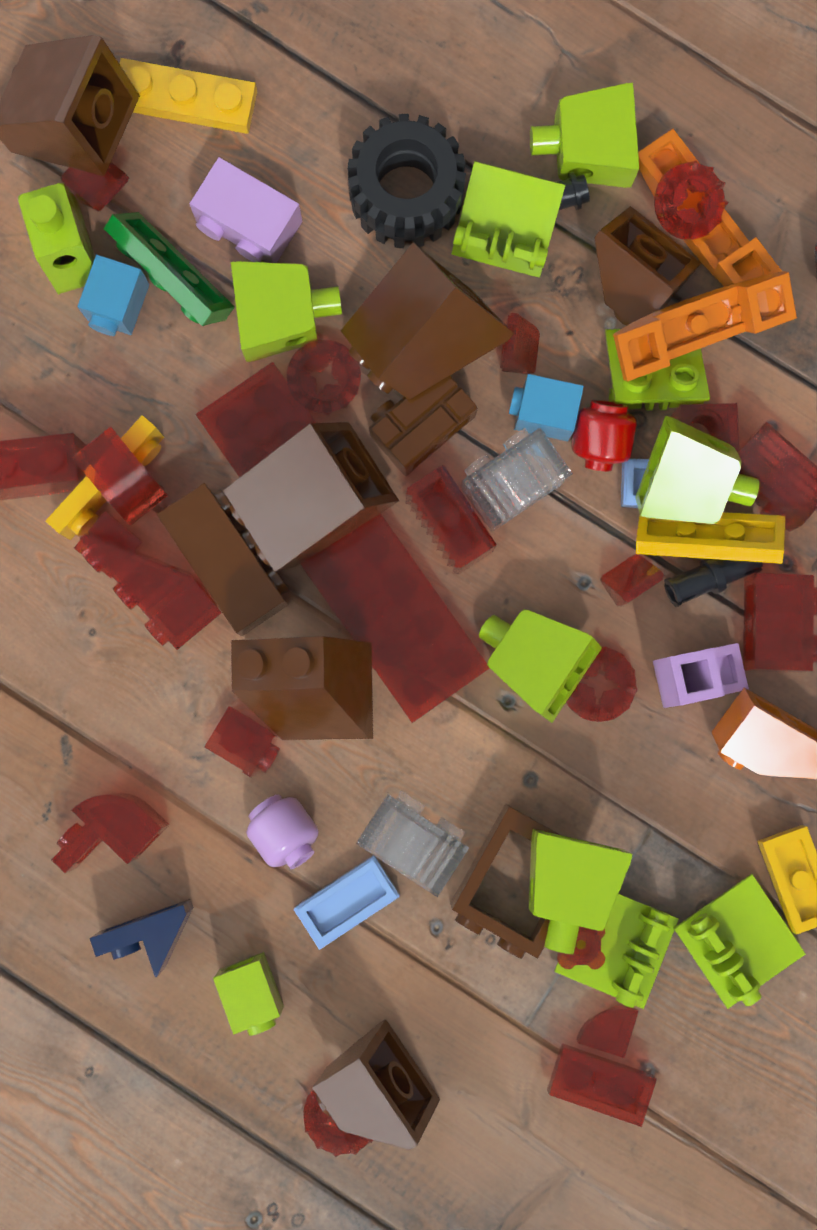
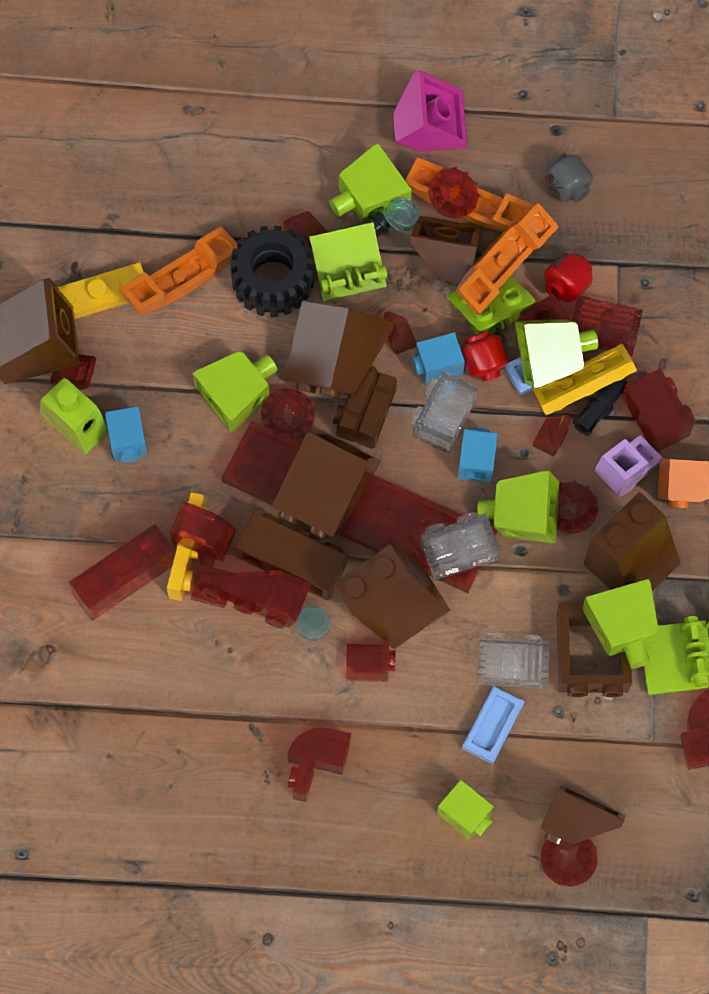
camera: 25 degrees left, 15 degrees down
(158, 930) = (382, 803): dark blue slope -> none
(168, 268) = (152, 400): green plate -> none
(205, 656) = (313, 623): none -> clear light blue plate
(245, 213) = (181, 341): lavender brick -> none
(282, 832) = (427, 700): lavender head -> none
(289, 128) = (182, 275): none -> orange slope
(428, 666) = (459, 545): none -> clear brick
(449, 520) = (420, 455): clear red brick -> none
(480, 144) = (304, 225): none -> clear red slope
(523, 556) = (477, 455): none -> dark azure brick
(589, 955) = (664, 667): clear red plate -> none
(609, 194) = (402, 214): none -> clear light blue tile
(640, 791) = (633, 546): none -> reddish brown slope
(722, 81) = (430, 115): none -> dark pink slope
(769, 390) = (568, 277): none -> red head

